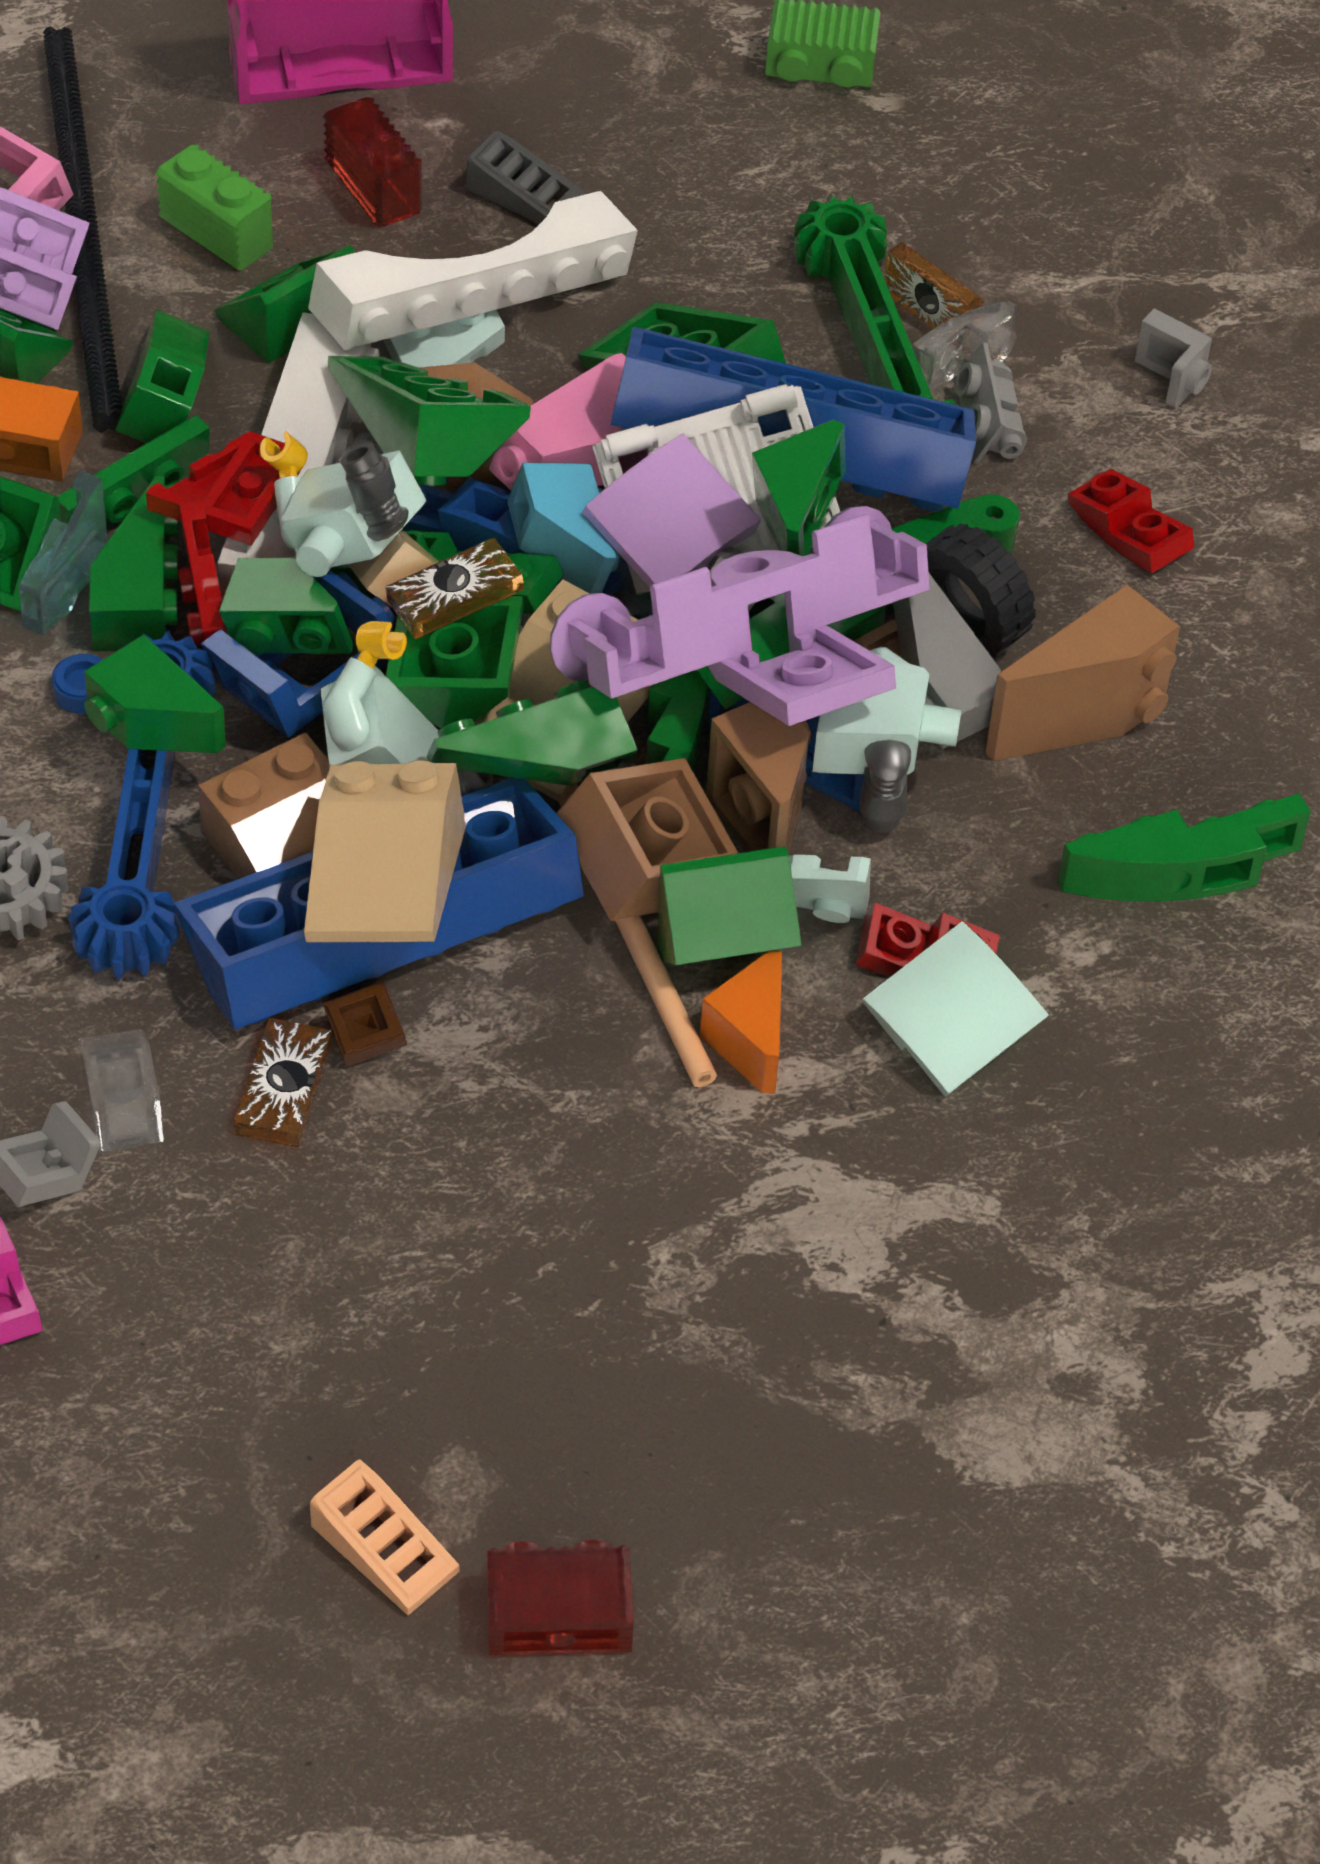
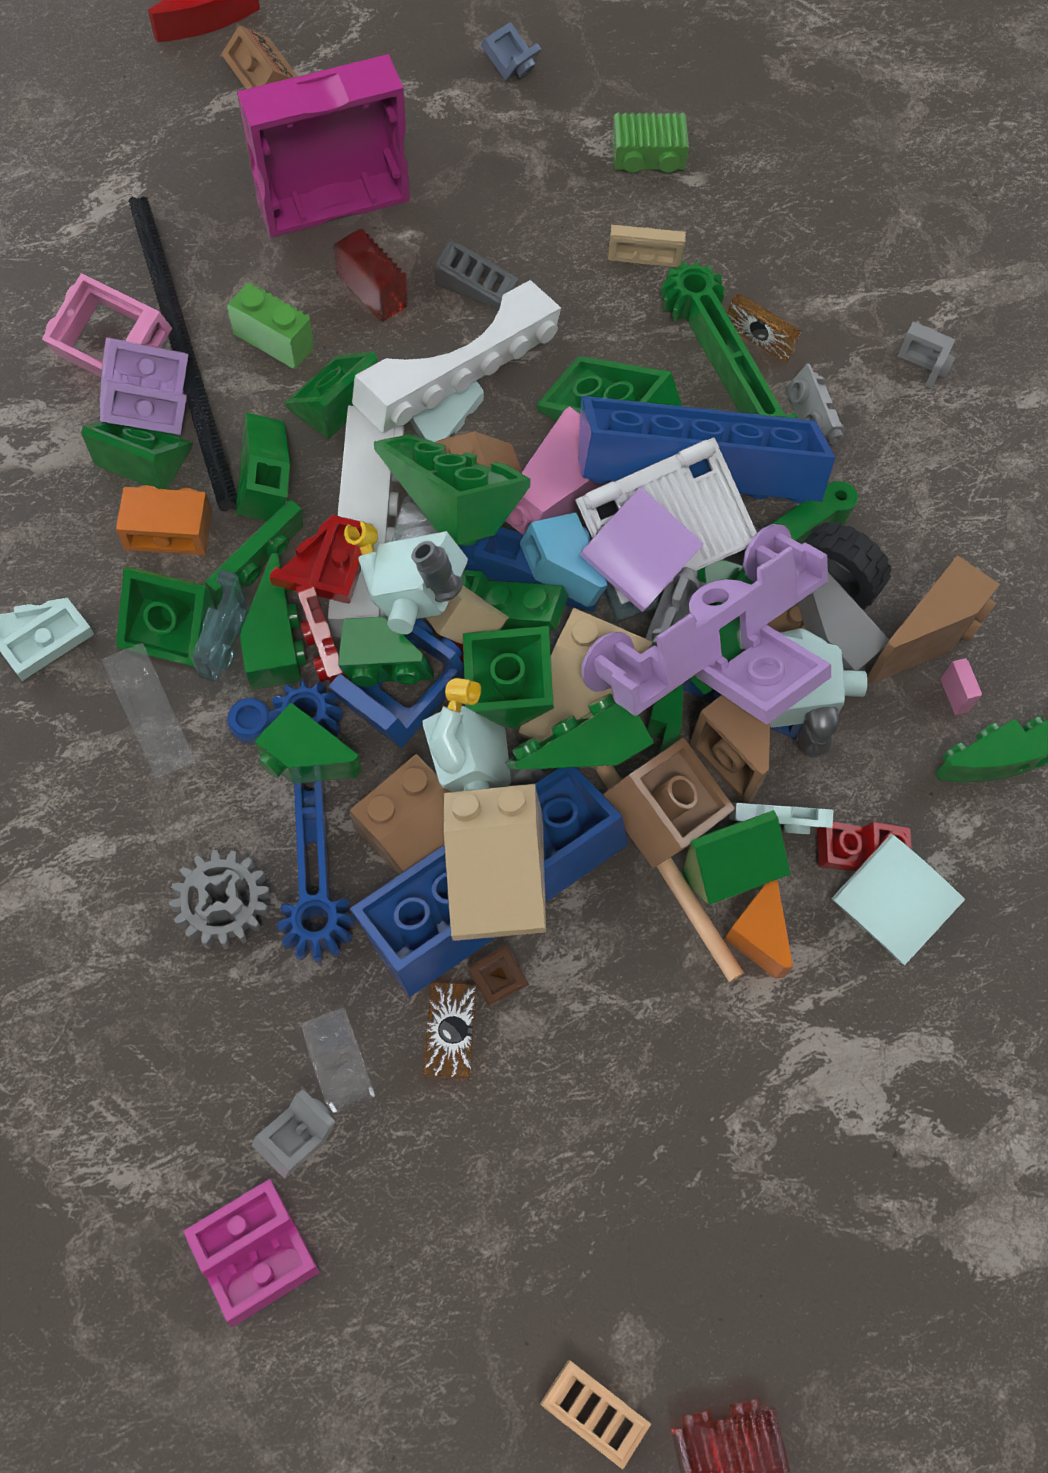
camera: 10 degrees left, 15 degrees up
(454, 588) = (501, 627): tile -> none
(783, 172) = (646, 246): none -> tan plate
(798, 483) = (732, 527): green slope -> none
(956, 340) = (793, 359): clear slope -> none
(1116, 771) = (961, 686): none -> bright pink tile
(1124, 518) = (918, 480): red slope -> none

